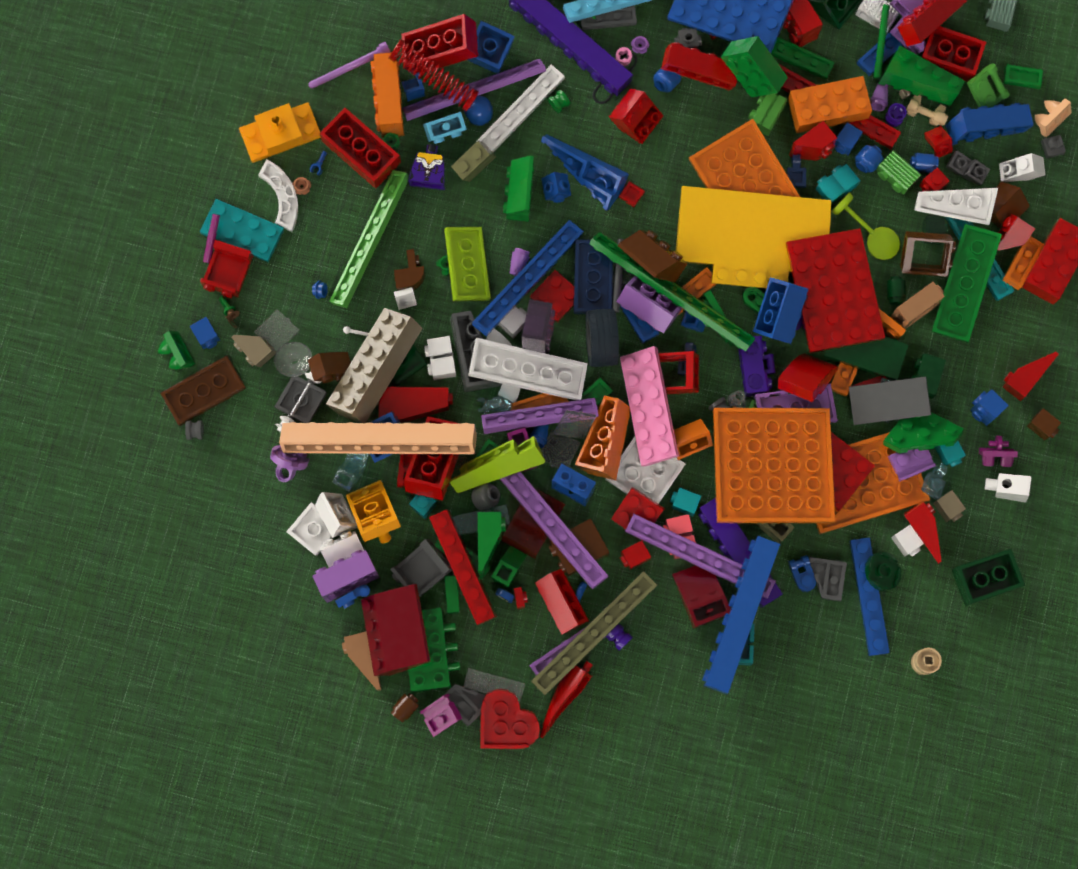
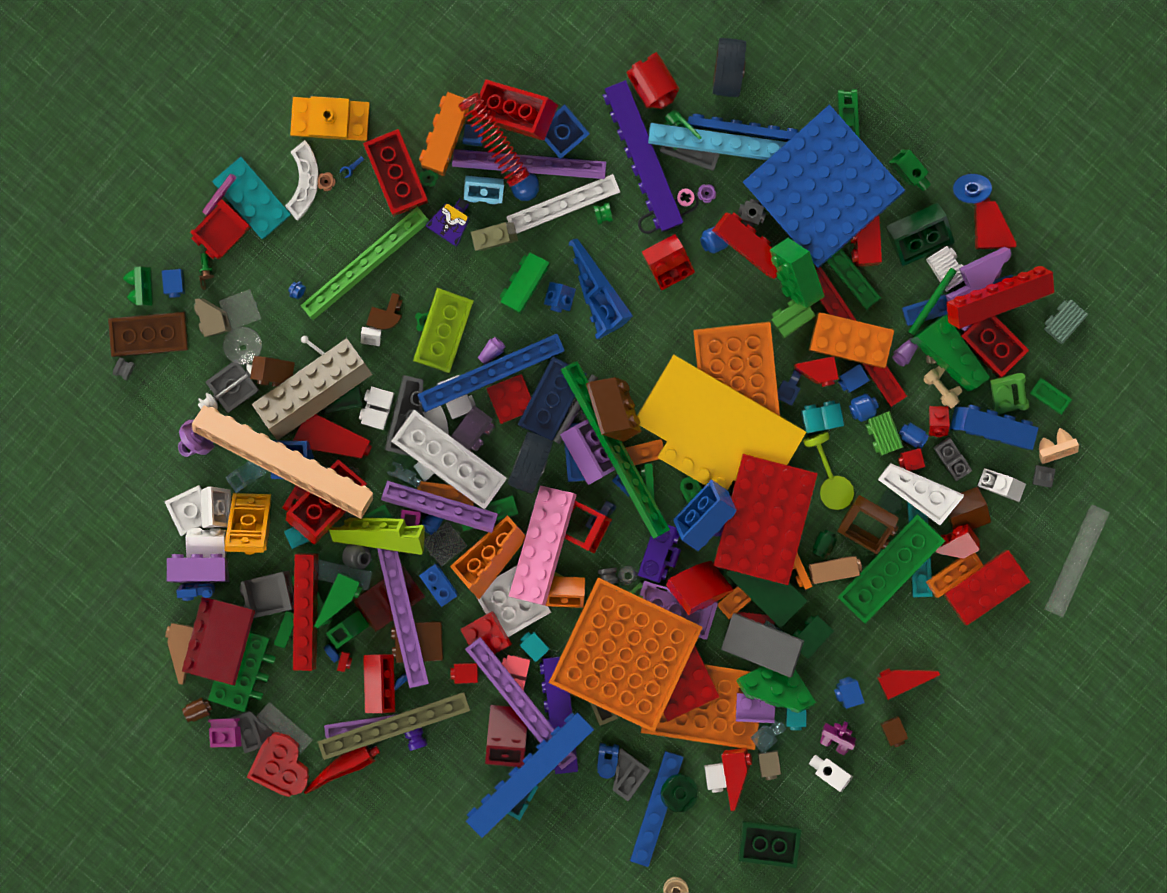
camera: 25 degrees right, 10 degrees up
(383, 48) = (461, 84): medium lavender piece -> none
(574, 424) = (467, 529): clear piece -> none
(631, 194) = (627, 334): red tile -> none
(898, 112) = (910, 376): dark purple wheel -> none

